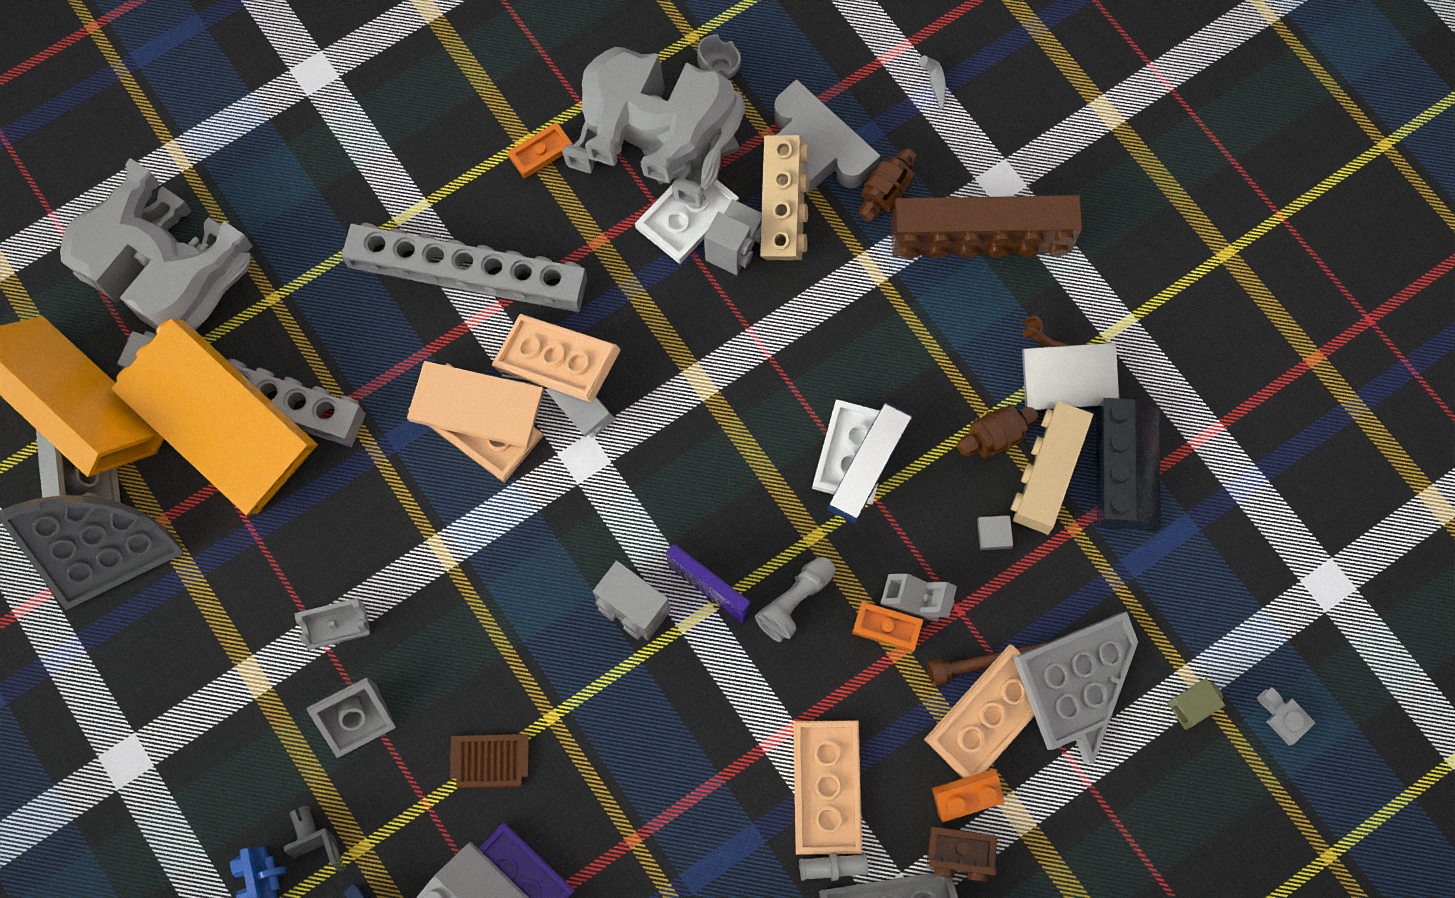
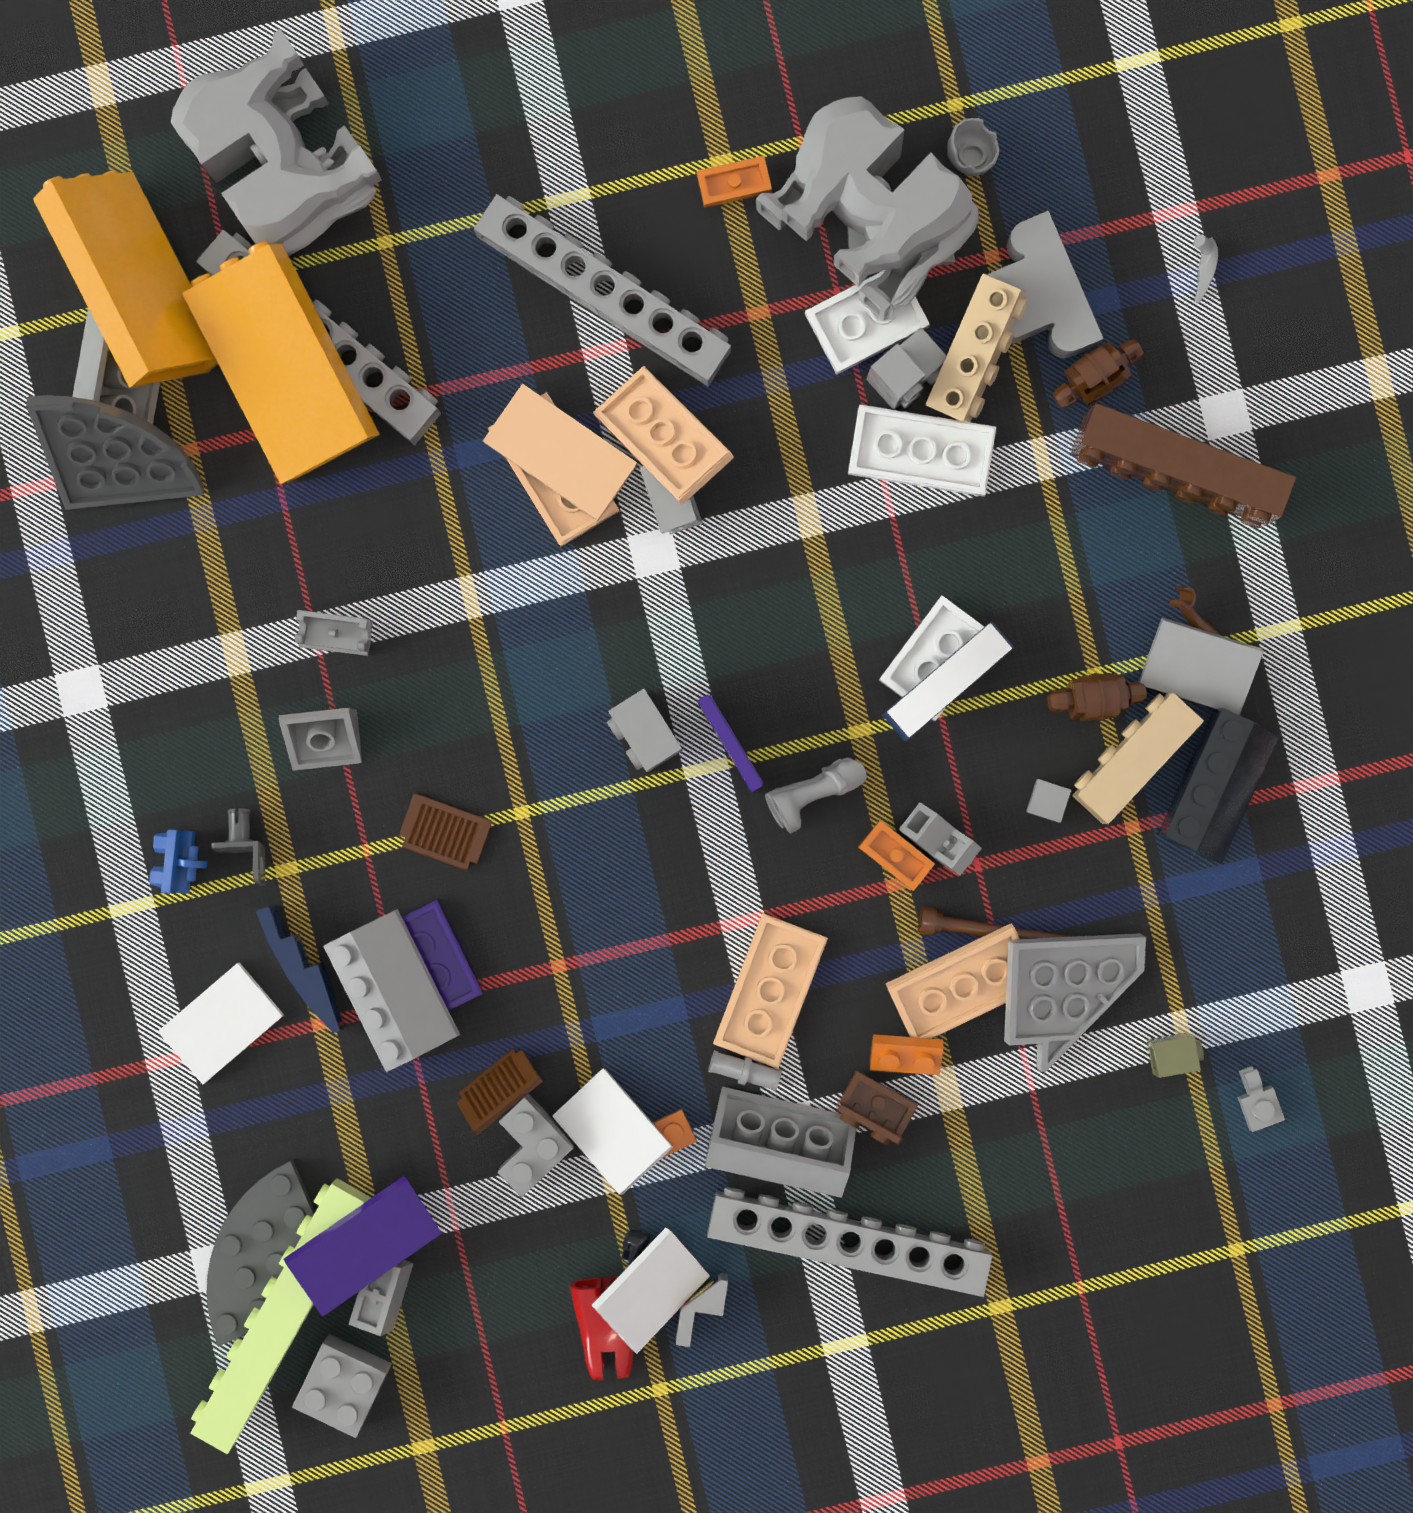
camera: 25 degrees right, 15 degrees up
(772, 296) = (922, 450): none -> white tile

